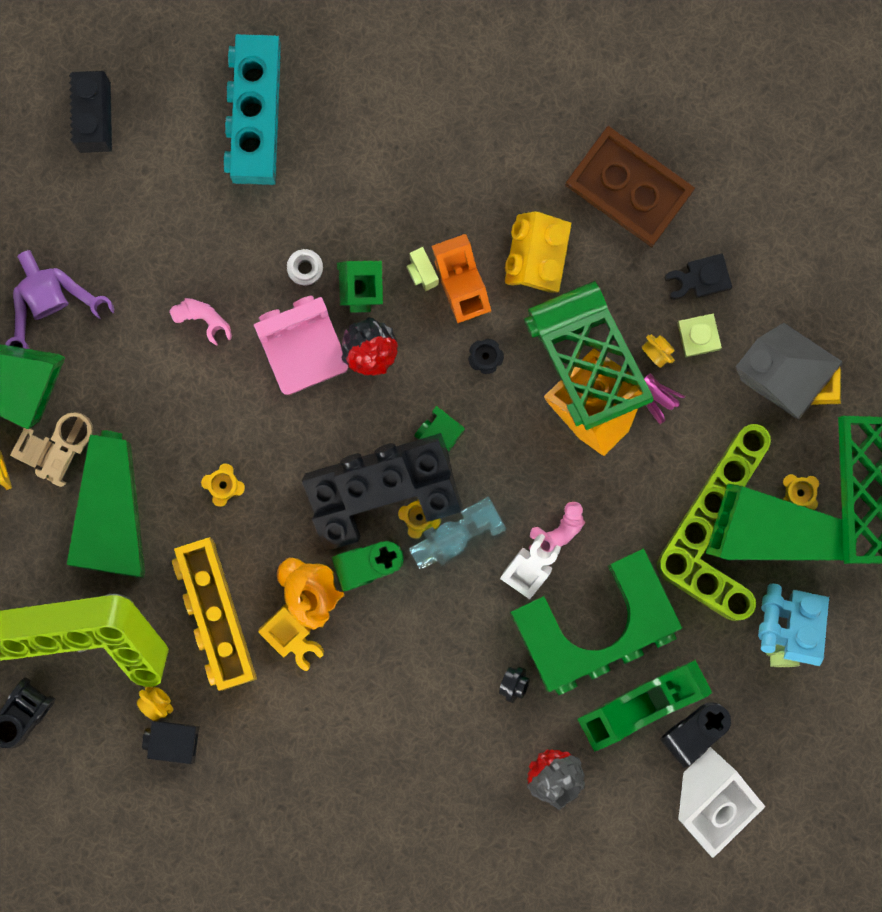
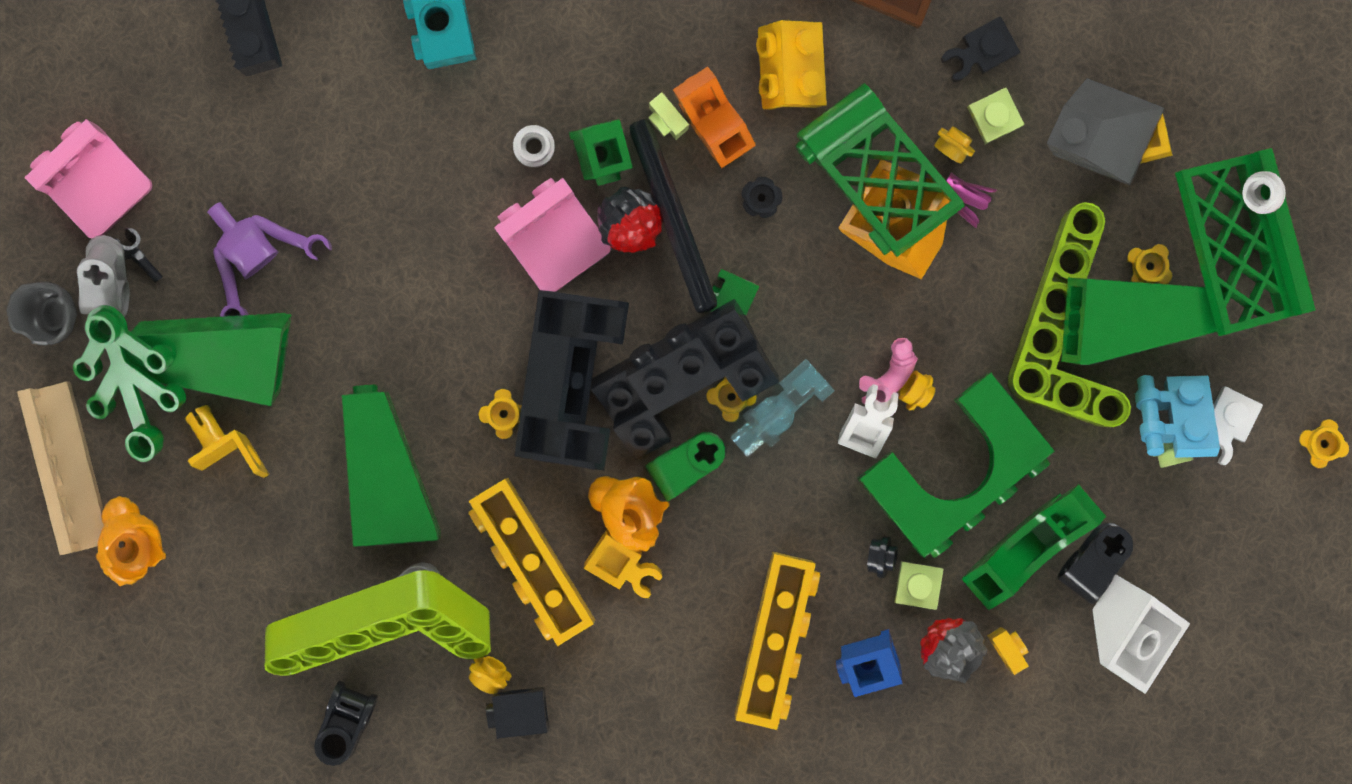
camera: 10 degrees left, 5 degrees up
(49, 455) = (302, 427): tan piece -> none
(195, 310) = (423, 224): bright pink piece -> none
(278, 465) = (561, 379): none -> black bracket
(405, 732) = (775, 640): none -> yellow brick
(407, 353) = (673, 216): none -> black axle
(474, 785) = (878, 675): none -> blue brick
(540, 716) = (918, 585): none -> yellowish green plate
(578, 550) = (917, 391): none -> yellow plate
(605, 790) = (1010, 649): none -> yellow plate
(841, 640) = (1234, 419): none -> white plate

